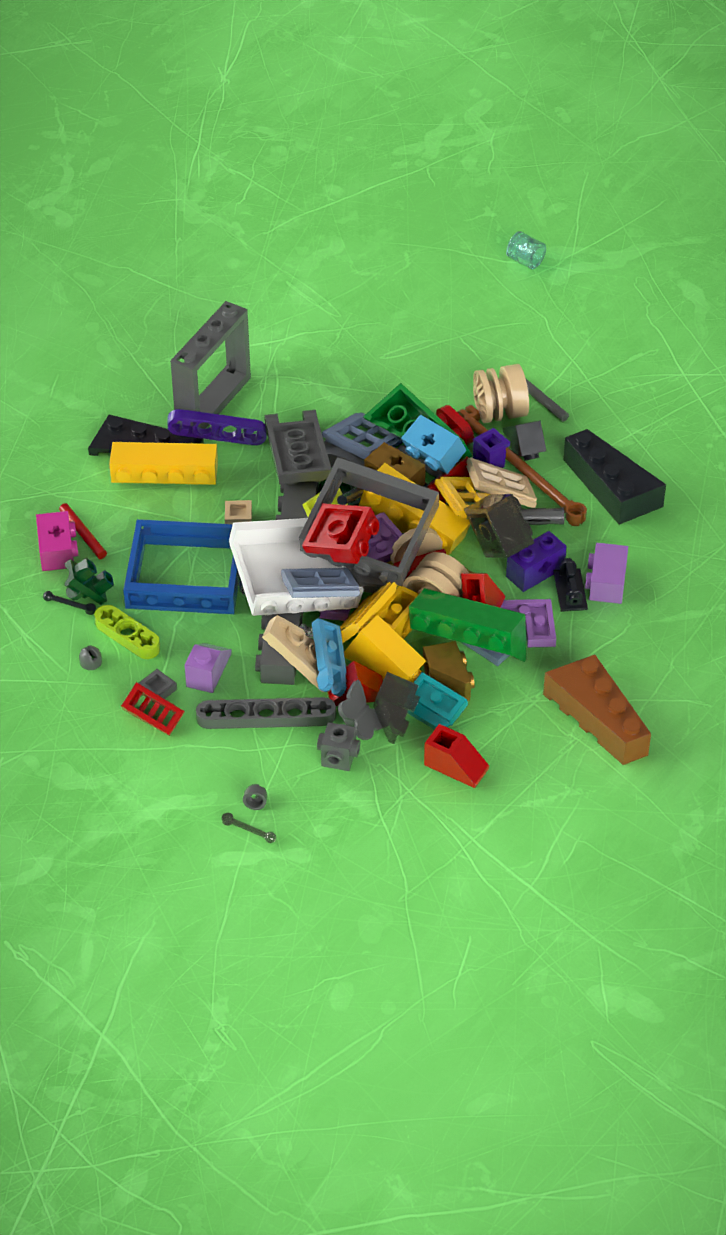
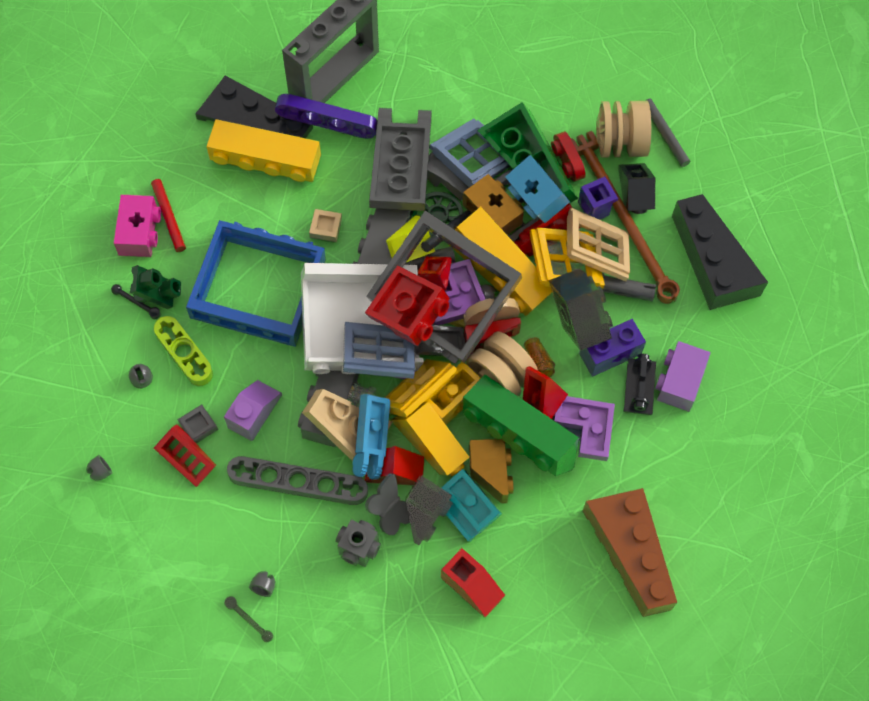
camera: 10 degrees right, 20 degrees up
(70, 734) = (98, 468): none -> dark grey hinge

